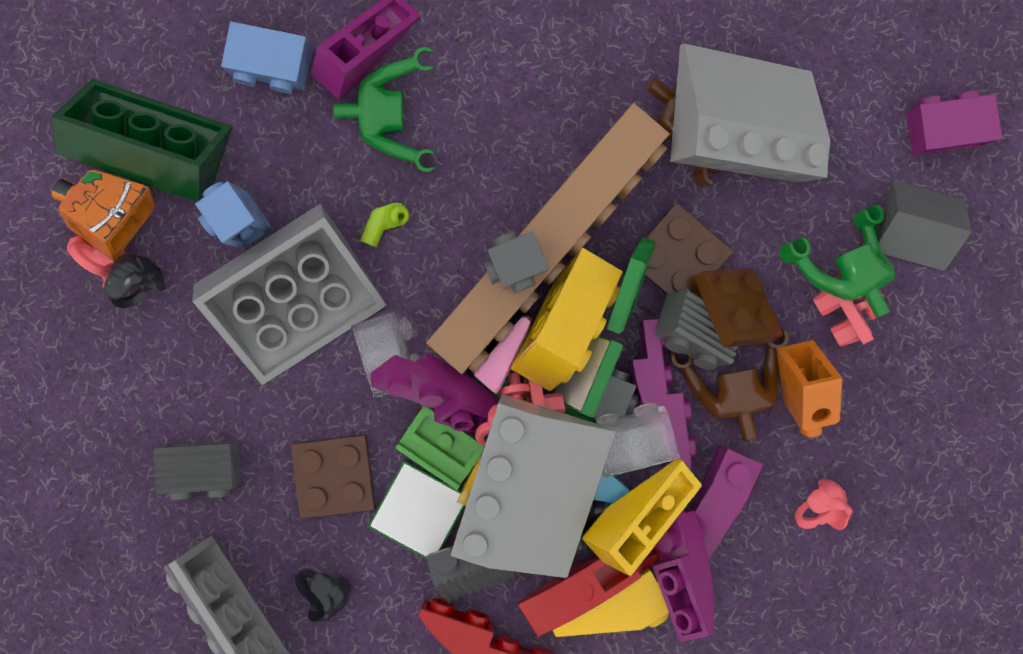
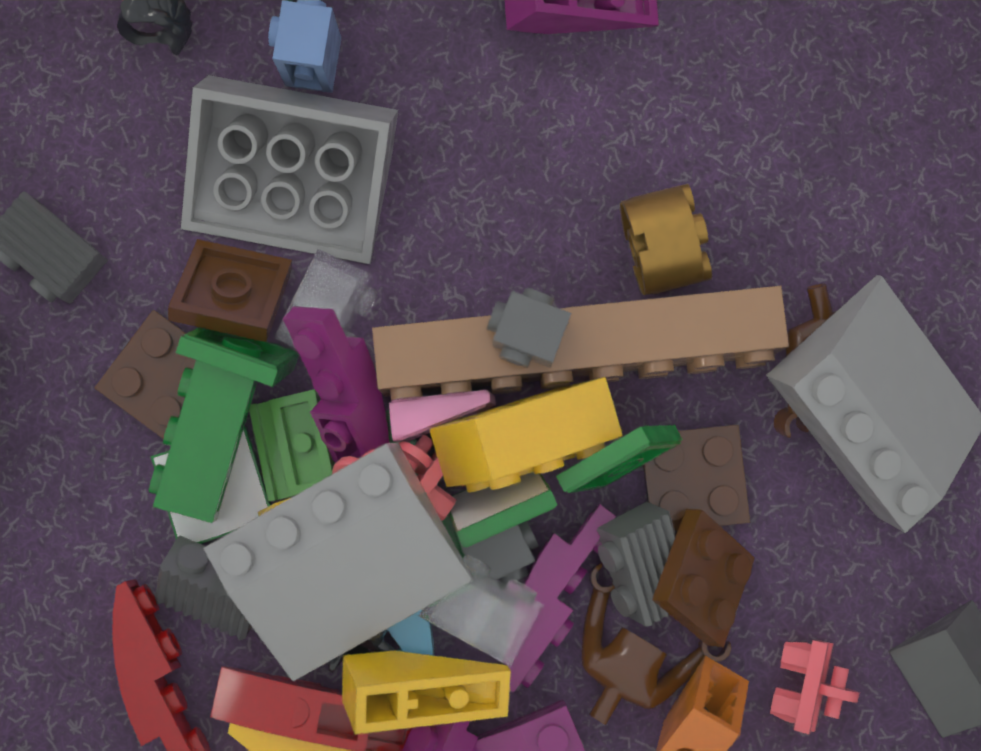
camera: 40 degrees right, 5 degrees down
(324, 394) = (230, 290): none -> reddish brown plate
(325, 594) = (53, 486): black piece -> none
(362, 426) = (239, 355): none -> green tile
(382, 109) = (540, 78): green piece -> none
(382, 219) = (443, 180): lime arm -> none
(389, 492) = (202, 442): none -> green brick
(541, 136) = (666, 239): none -> pearl gold brick
(861, 270) = (858, 653): green piece -> none

